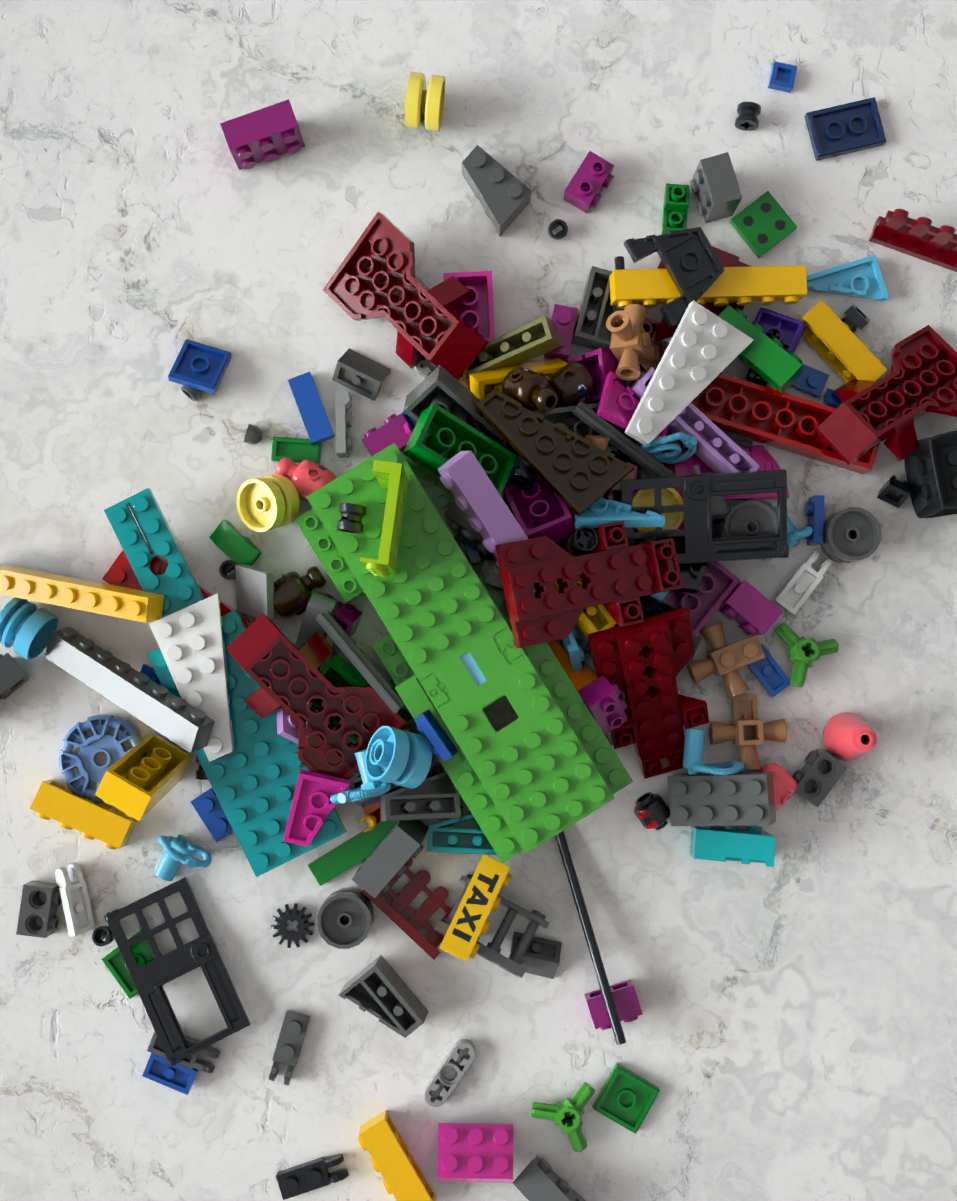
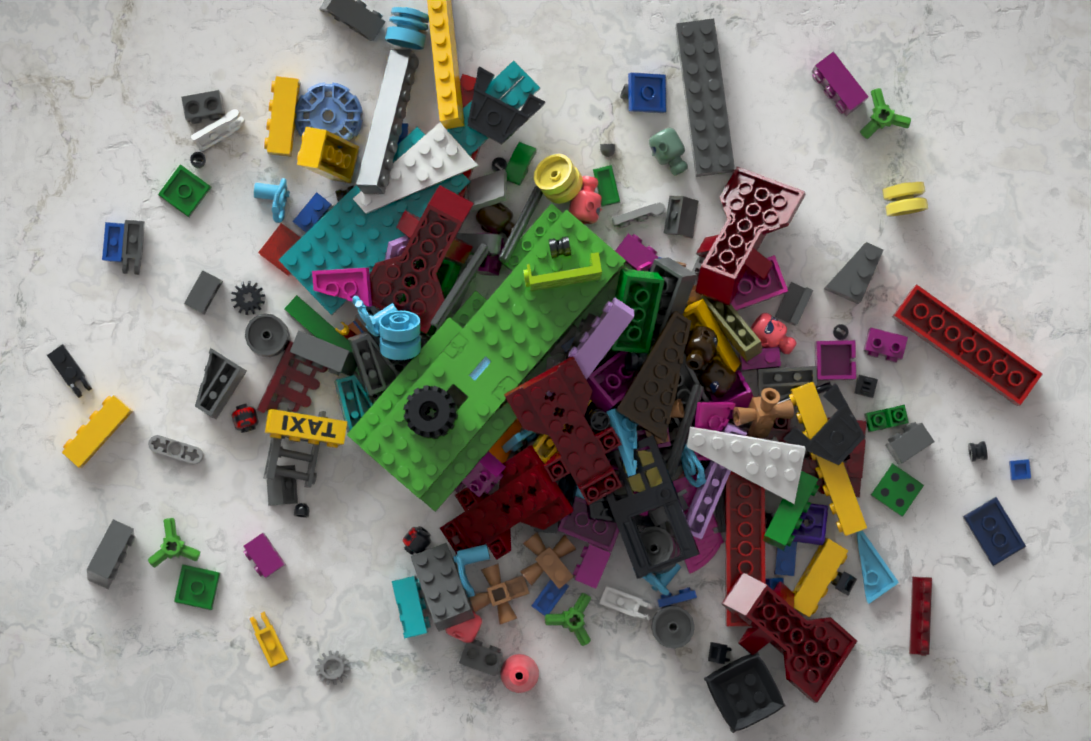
camera: 75 degrees right, 0 degrees up
(165, 553) = (495, 117): none -> black wing
(167, 967) = (196, 222): black door -> none
(227, 299) = (704, 97): none -> dark grey brick
(238, 870) = (278, 245): none -> clear red tile
(268, 978) = (203, 292): none -> dark grey panel
(275, 361) = (667, 149): none -> sand green piece
(289, 1044) = (160, 323): dark grey hinge -> none
(310, 565) = (520, 225): none -> dark grey axle
(311, 408) = (641, 187): blue tile -> none
(319, 92) = (876, 122): none -> bright green bush
(430, 728) = (420, 361): blue plate -> none
(438, 976) = (245, 418): none -> head
(475, 1153) = (126, 484): dark pink brick -> none
(498, 762) = (419, 405): none -> black wheel
(508, 273) = (794, 303): none -> dark grey panel
(535, 305) = (773, 333): none -> coral piece
(572, 940) = (301, 510): none -> black hinge
(590, 247) = (833, 360): none -> magenta piece
(590, 939) = (312, 519): black piece -> none
(620, 86) = (967, 345): none -> red brick
(630, 222) = (865, 386): none -> black tile
(719, 1030) = (269, 641): none -> yellow hinge
(777, 970) = (337, 673): none -> light grey gear

